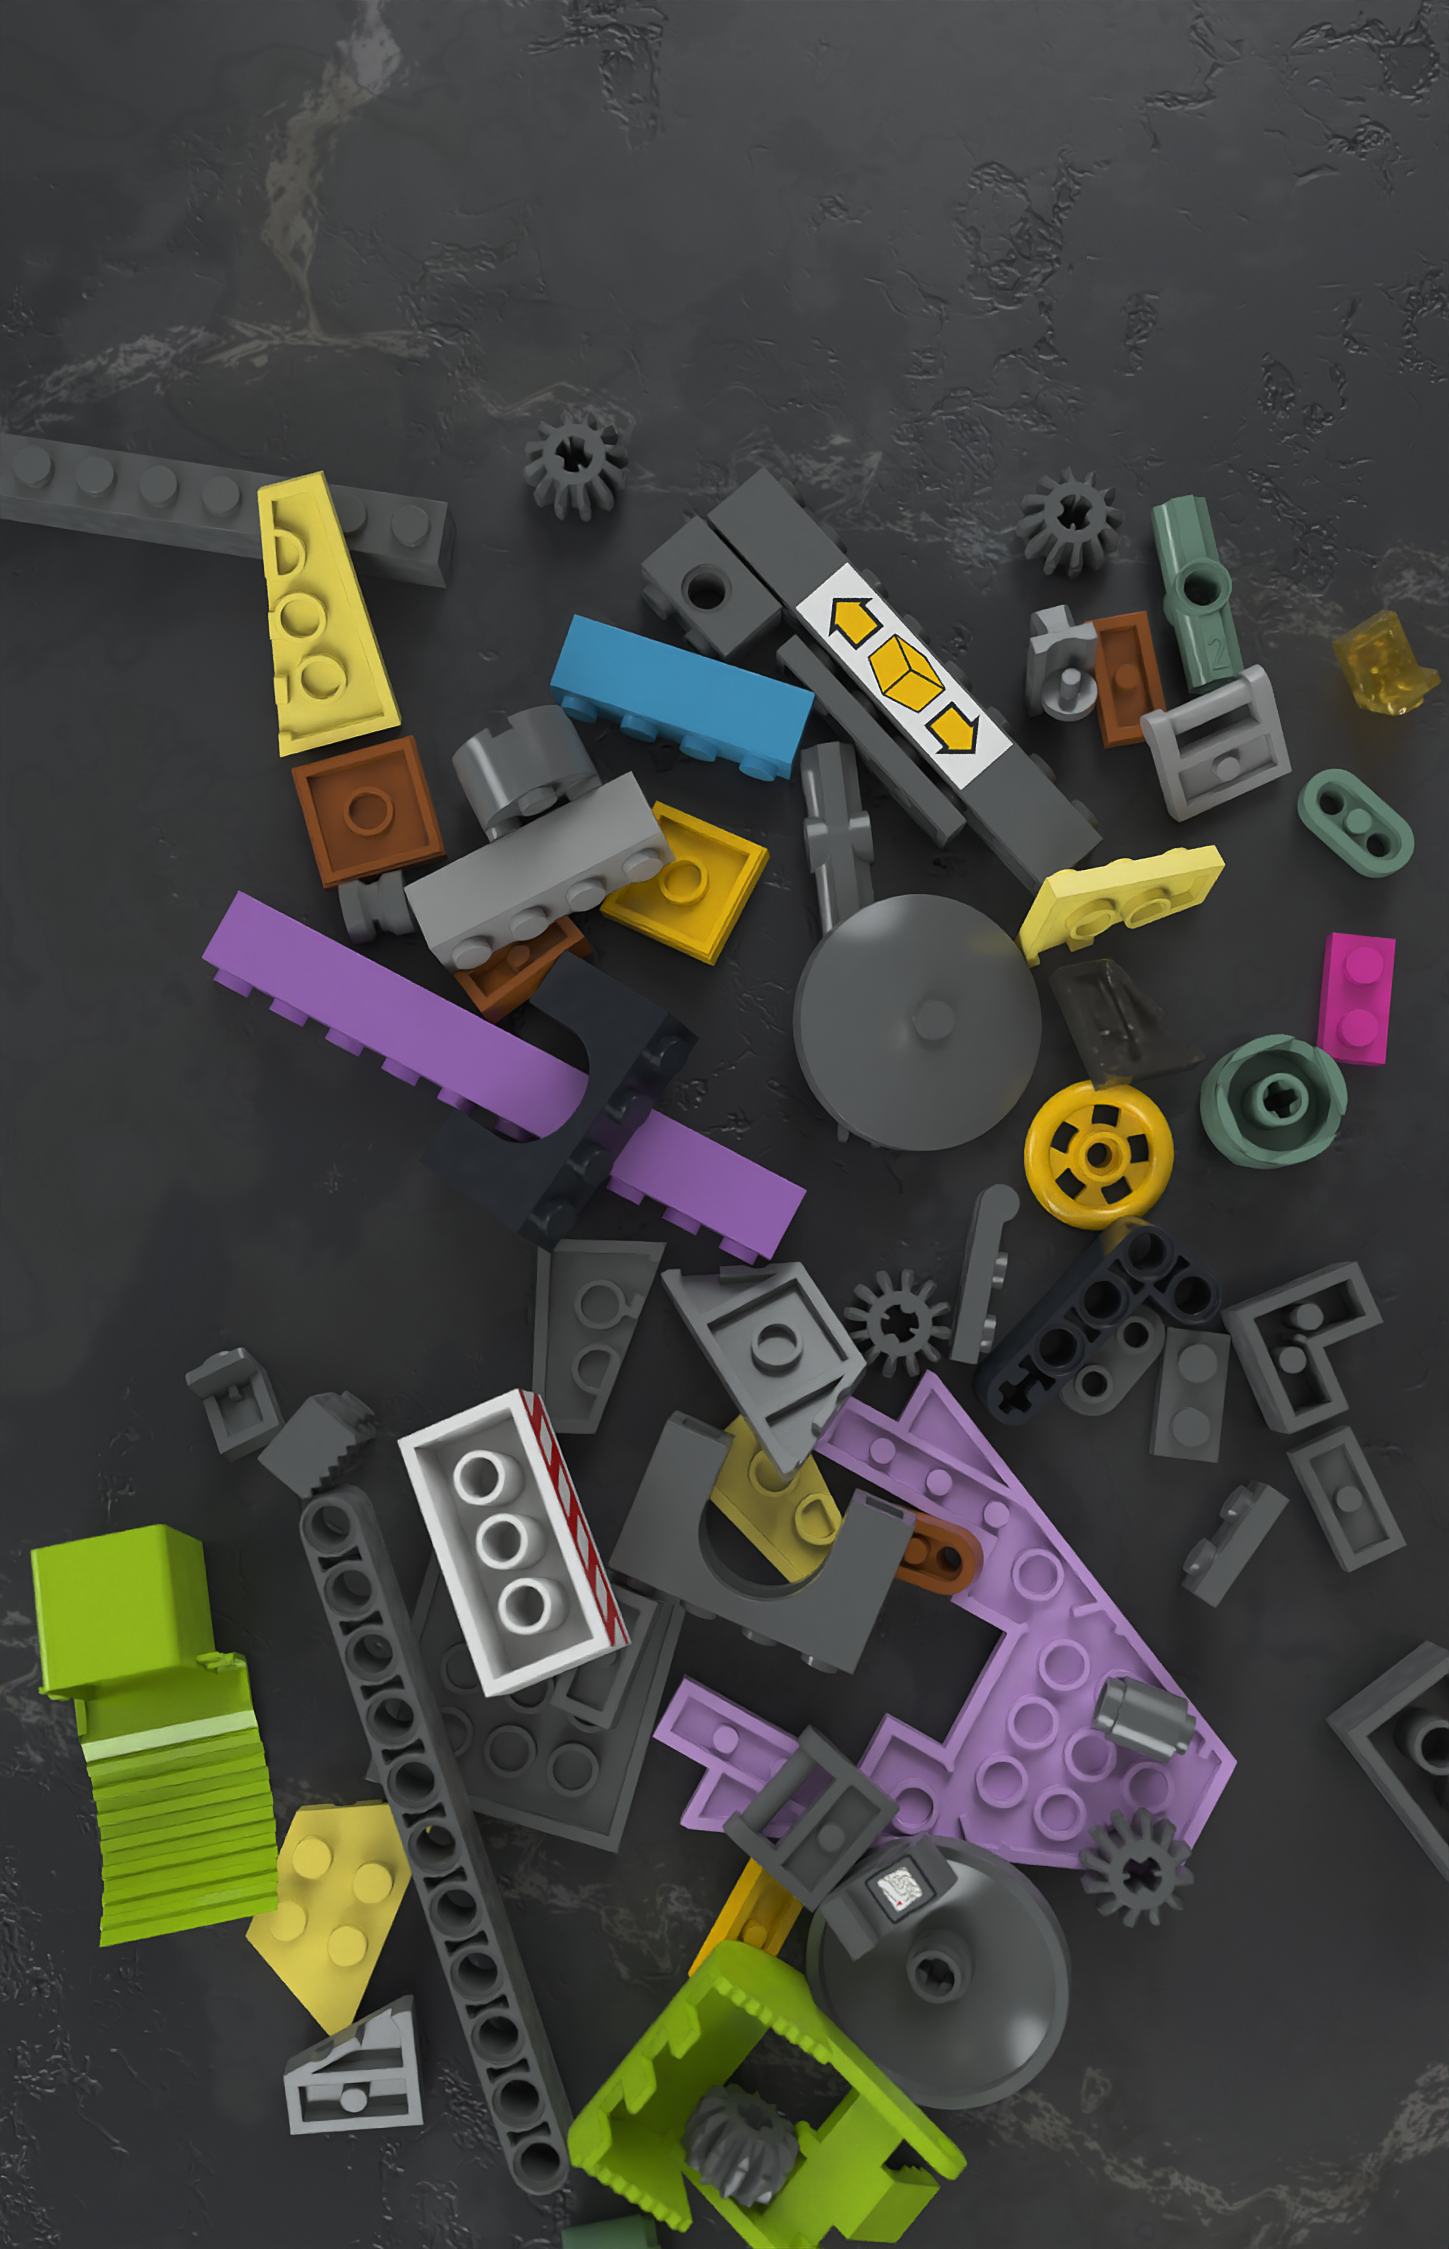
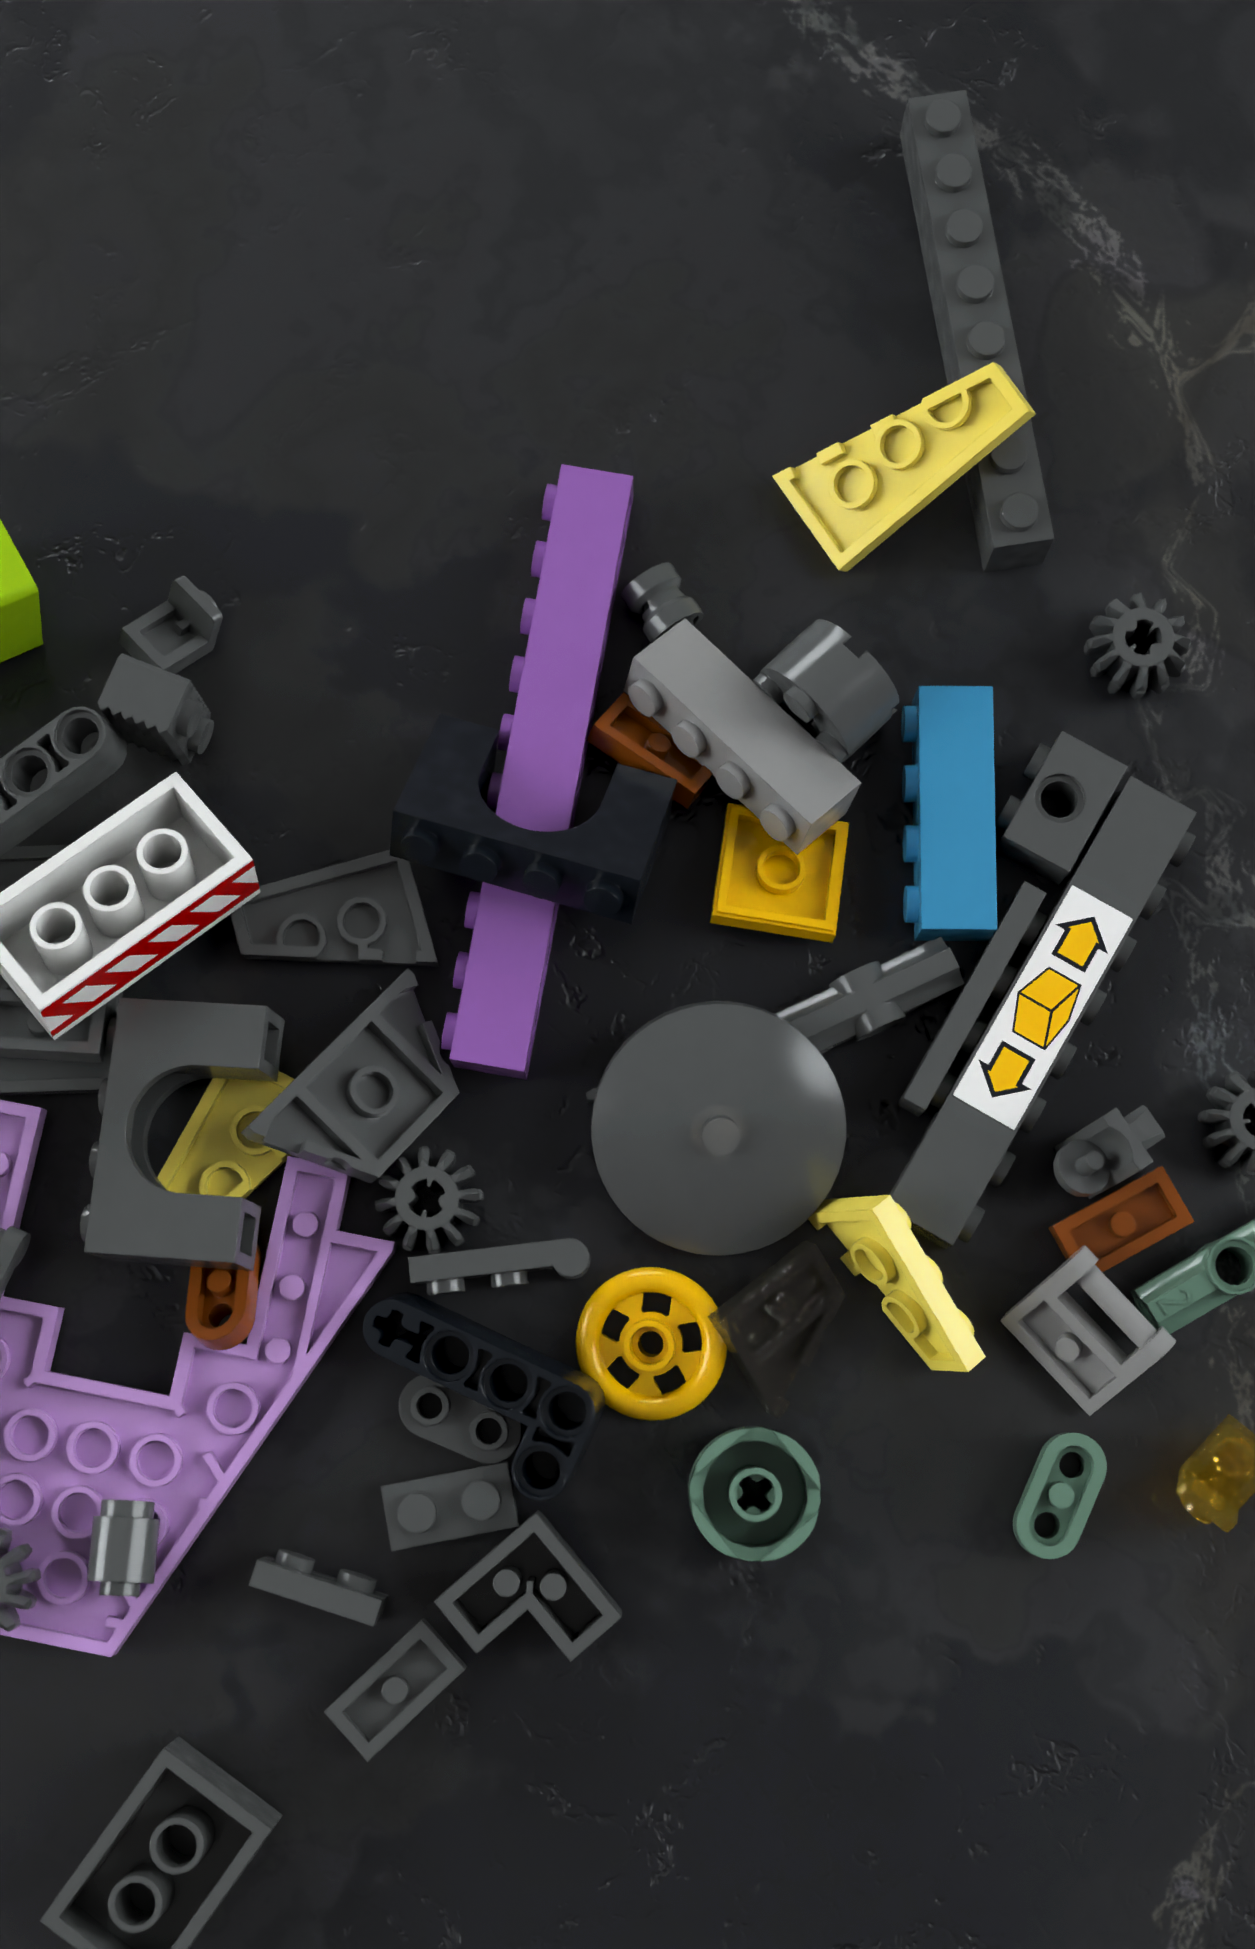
camera: 75 degrees right, 5 degrees down
(369, 813) = (747, 570): dark orange plate -> none
(1356, 998) = (887, 1551): dark pink plate -> none

